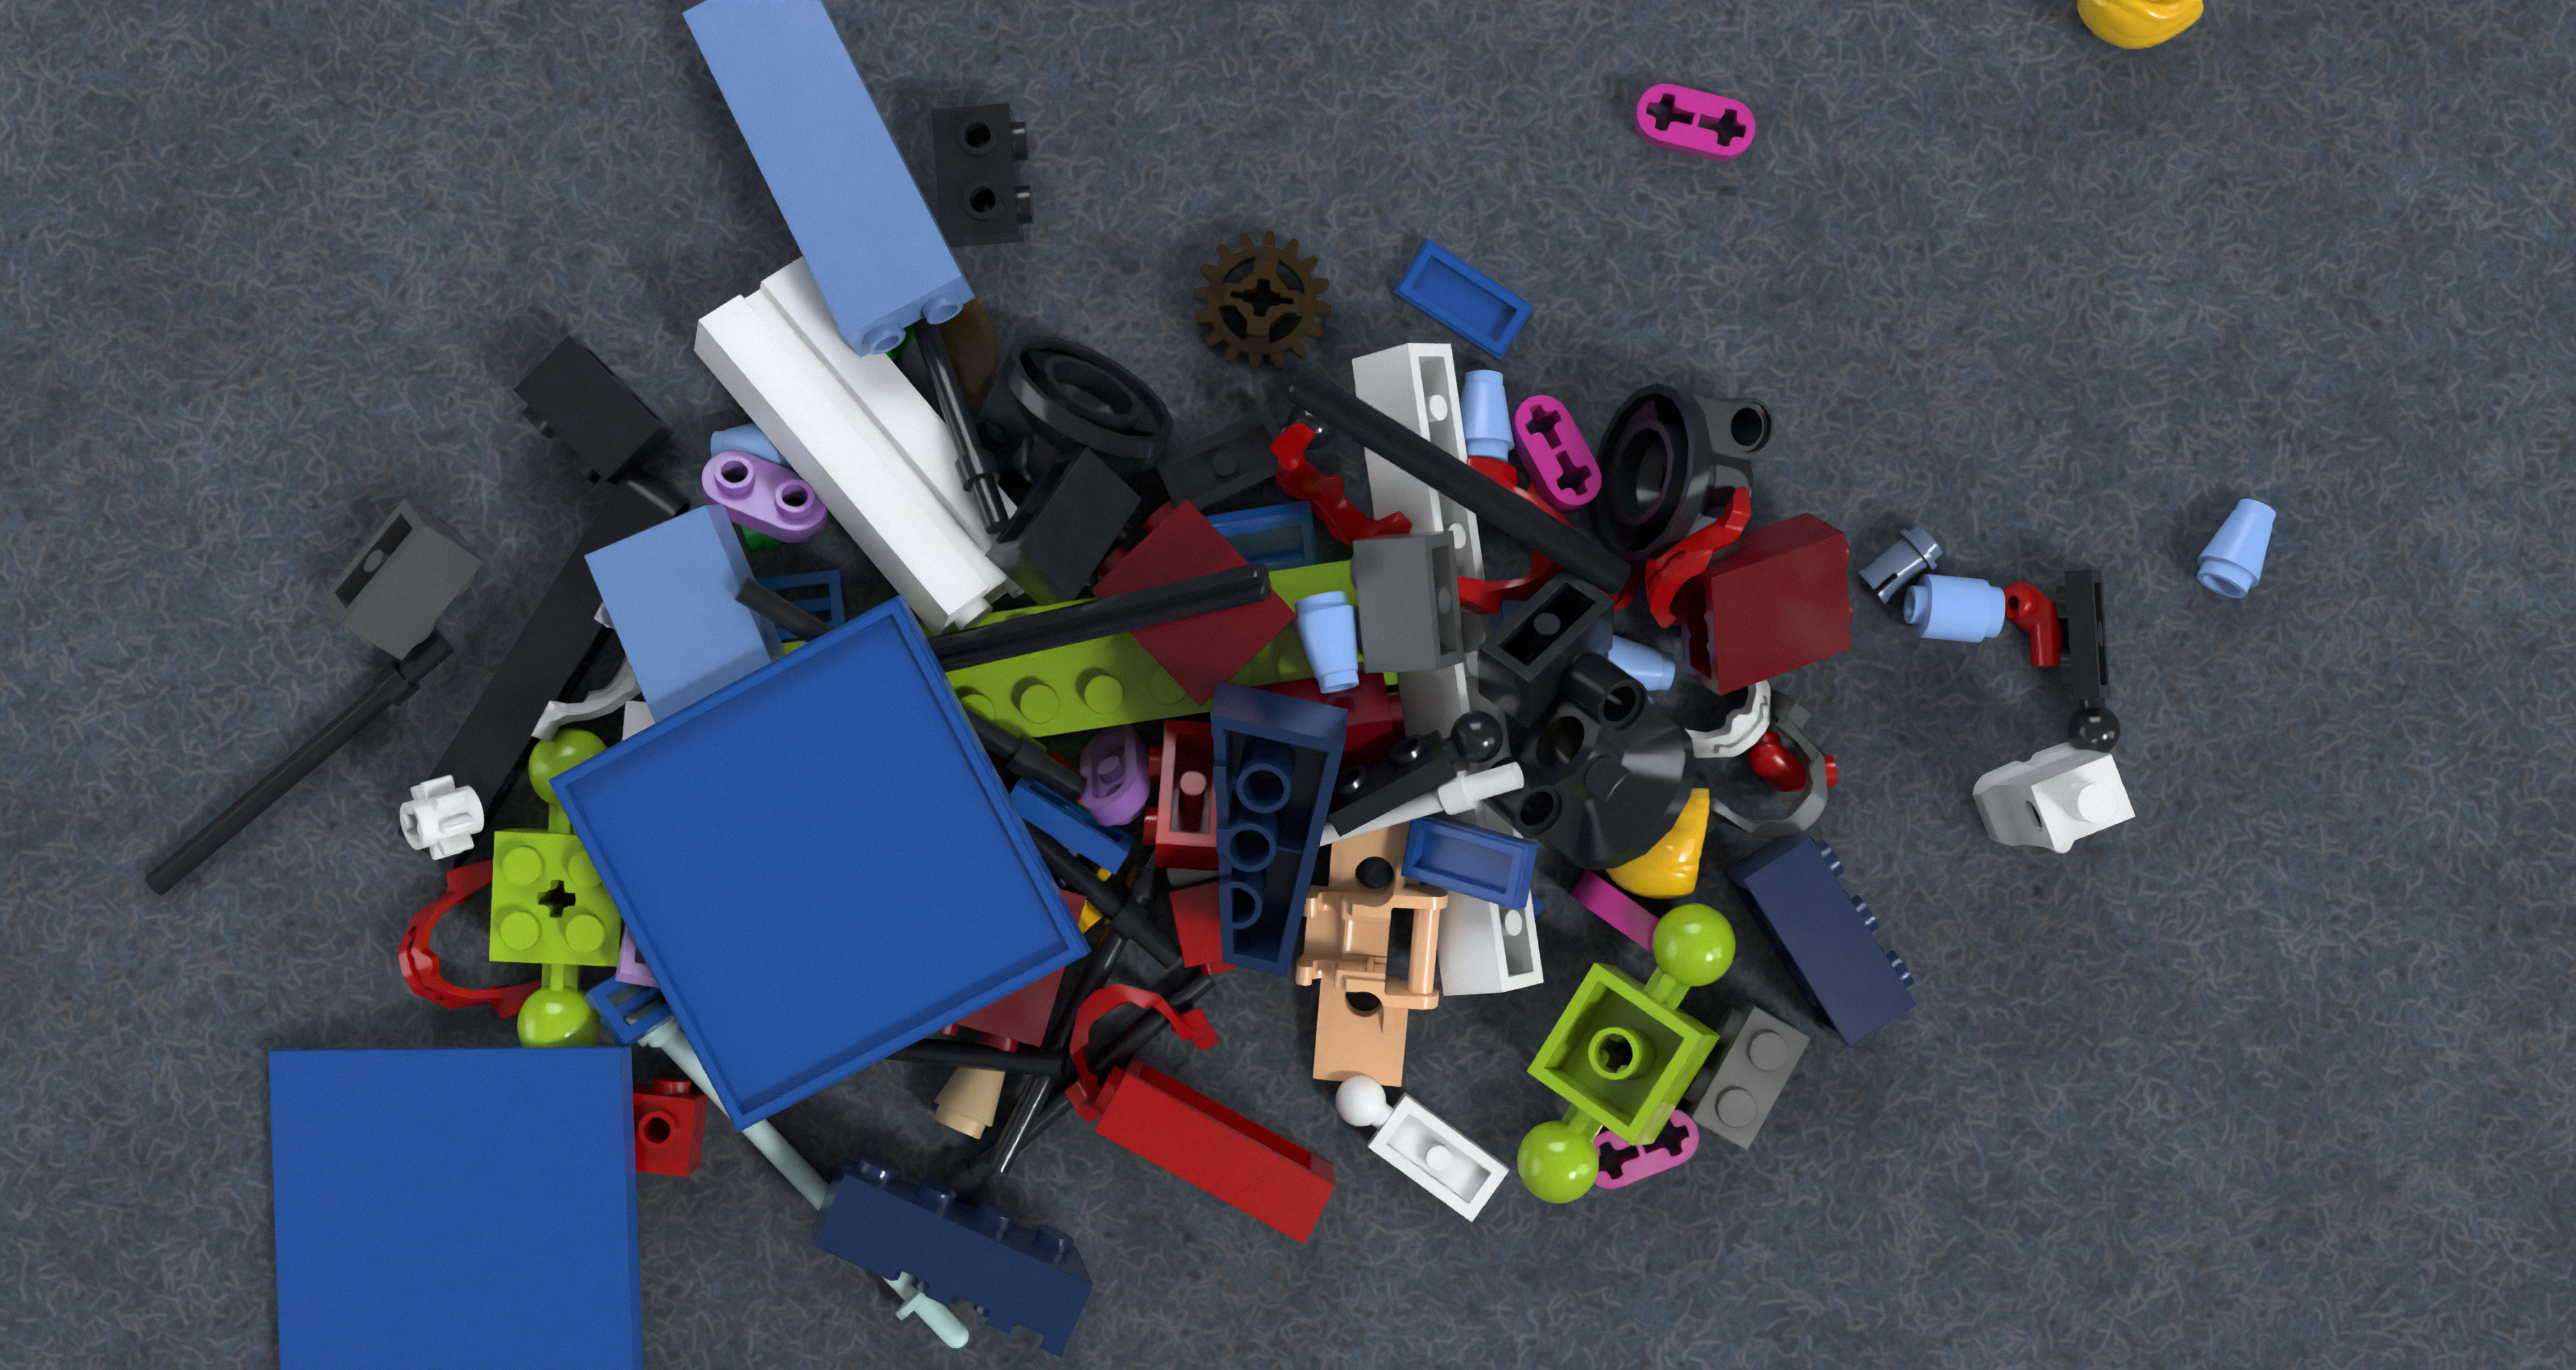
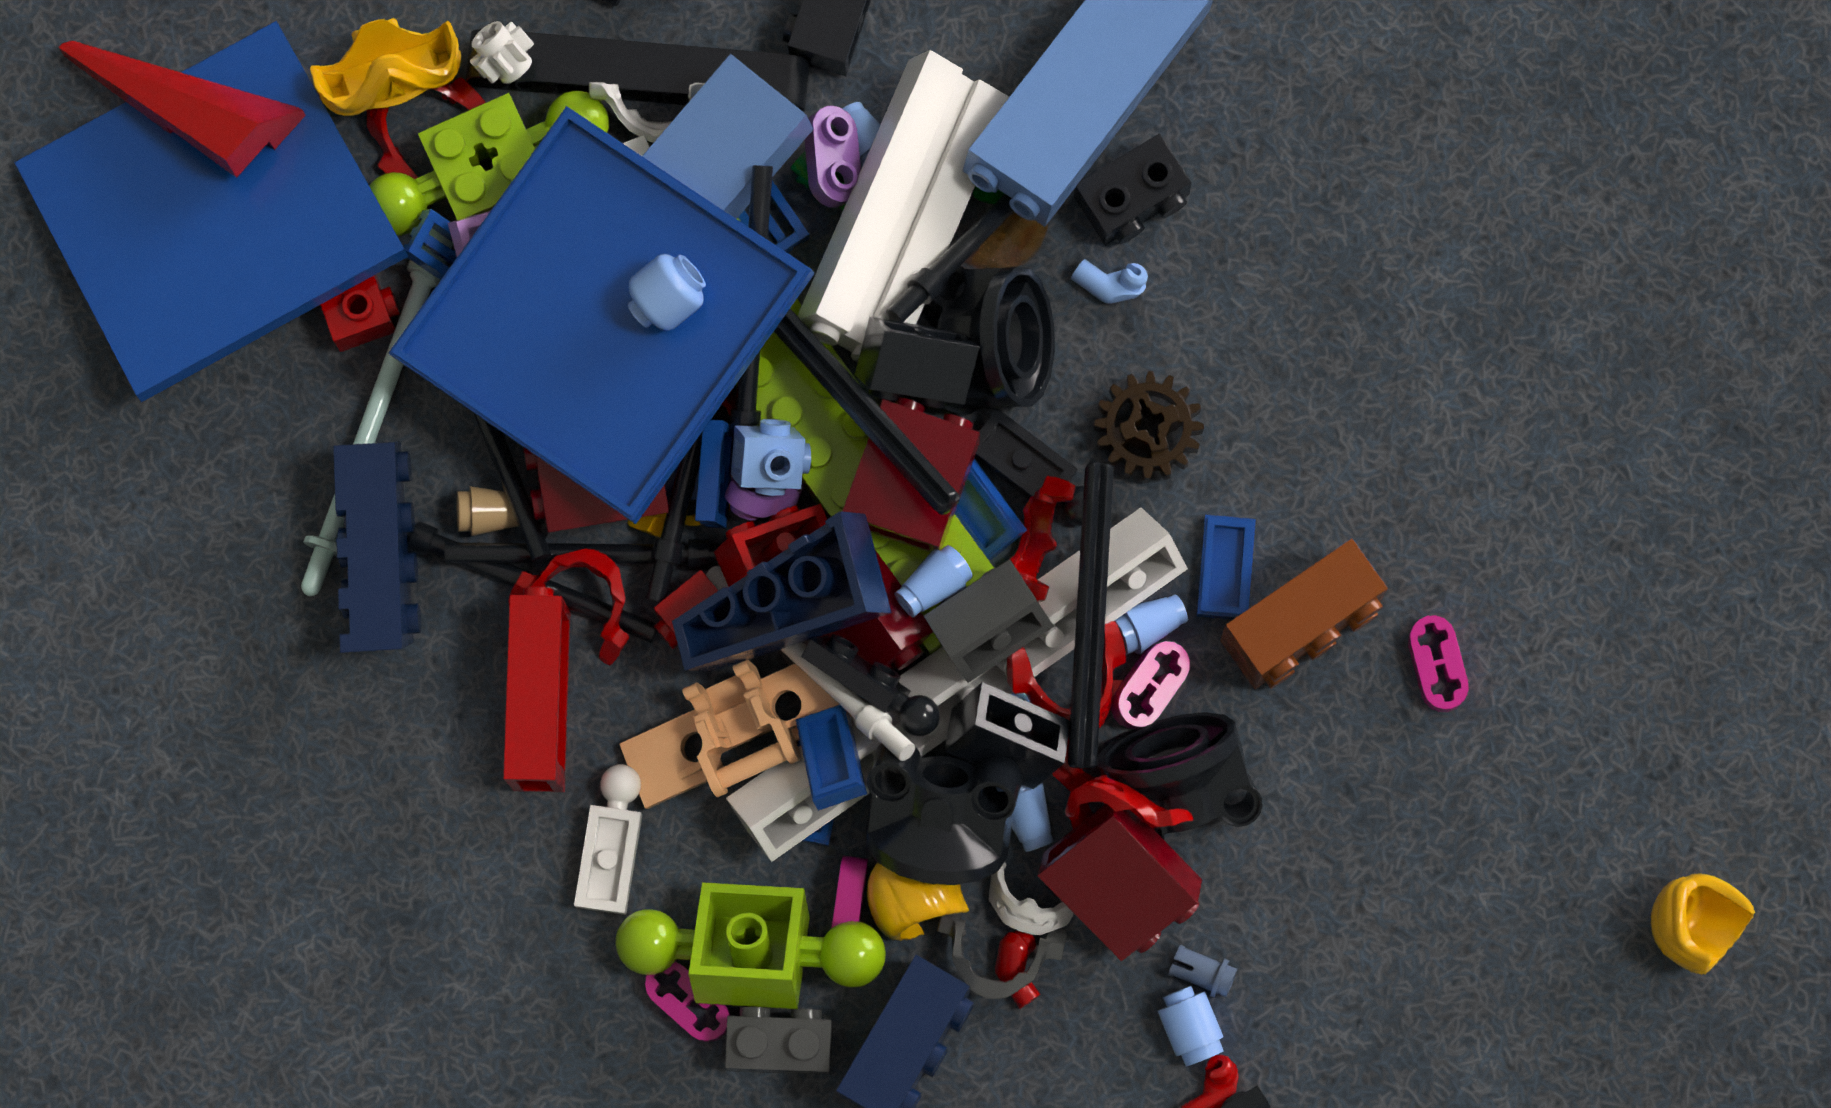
camera: 65 degrees right, 10 degrees down
(345, 1186) = (212, 117): none -> red wedge
(391, 955) = (387, 67): none -> yellow piece
(837, 780) = (666, 292): none -> light blue head
(1077, 258) = (1111, 287): none -> light blue arm
(1087, 753) = (769, 457): none -> light blue brick
(1575, 239) = (1305, 616): none -> dark orange brick

